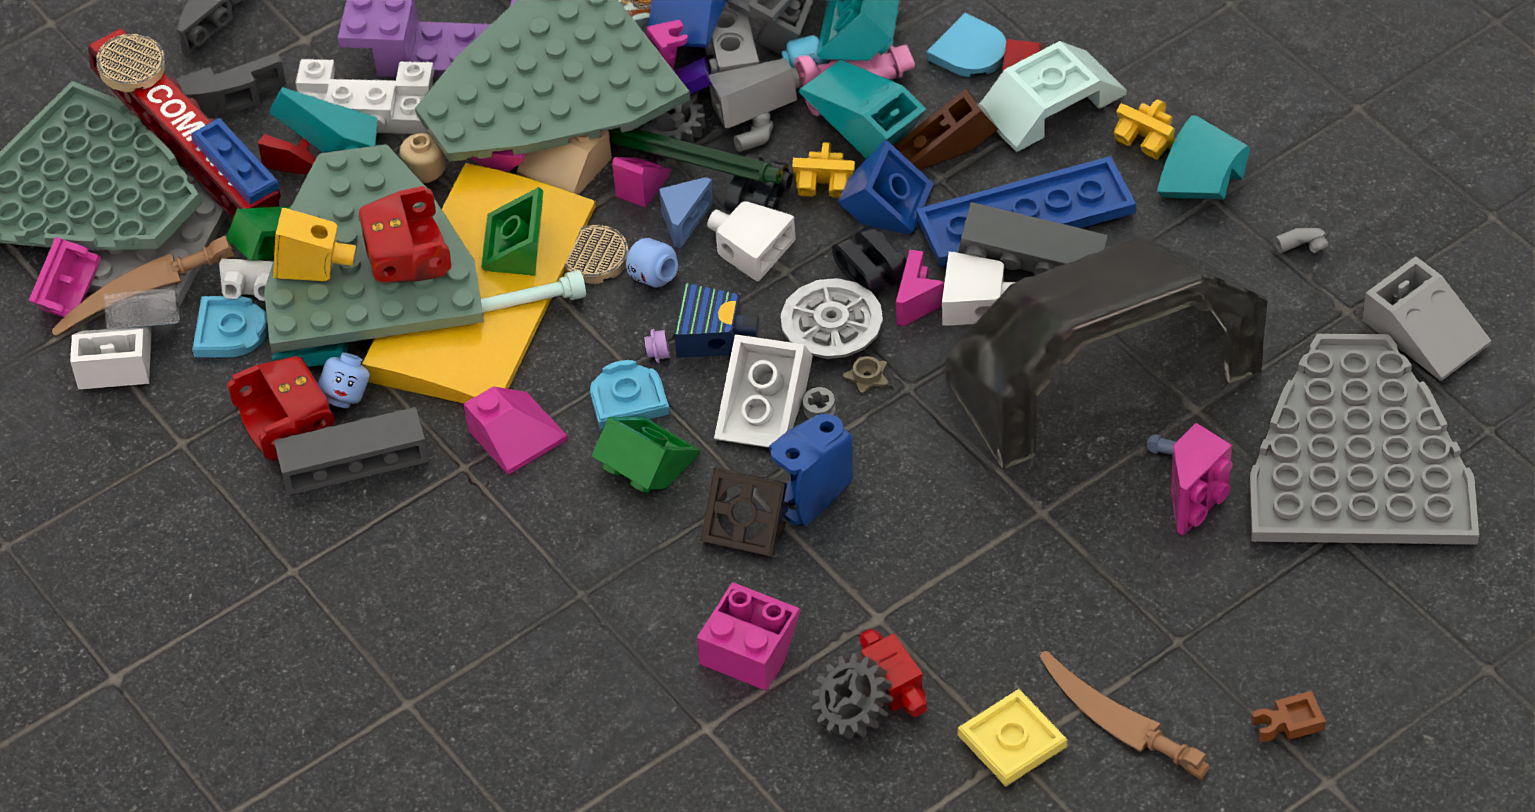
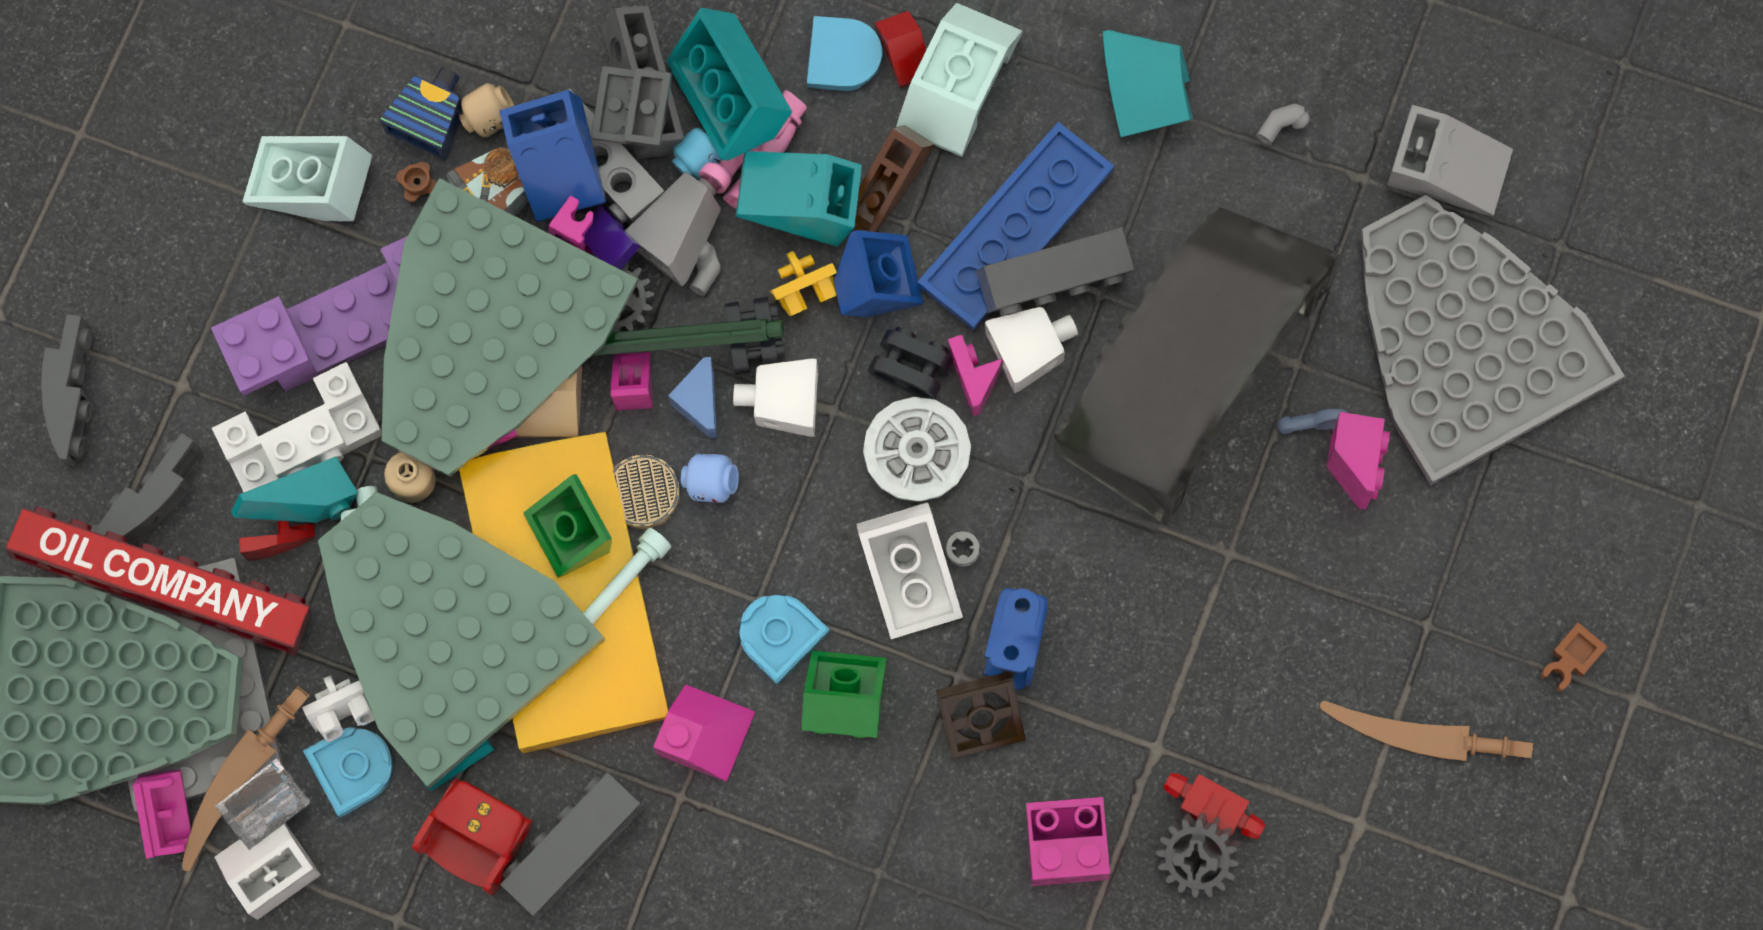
camera: 30 degrees left, 25 degrees up
(130, 62) = (65, 547): tile -> none
(234, 161) = (246, 599): blue tile -> none
(255, 231) = (322, 657): green slope -> none
(308, 247) = (391, 675): yellow torso -> none
(344, 380) = (513, 776): light blue head -> none
(403, 239) = (483, 607): red piece -> none
(657, 345) = (774, 567): lavender plate -> none
(709, 322) = (809, 515): dark blue torso -> none
(867, 365) = (982, 478): dark tan plate -> none
(1012, 737) = (1353, 811): light yellow plate -> none
(1148, 122) = (1086, 71): yellow hips -> none

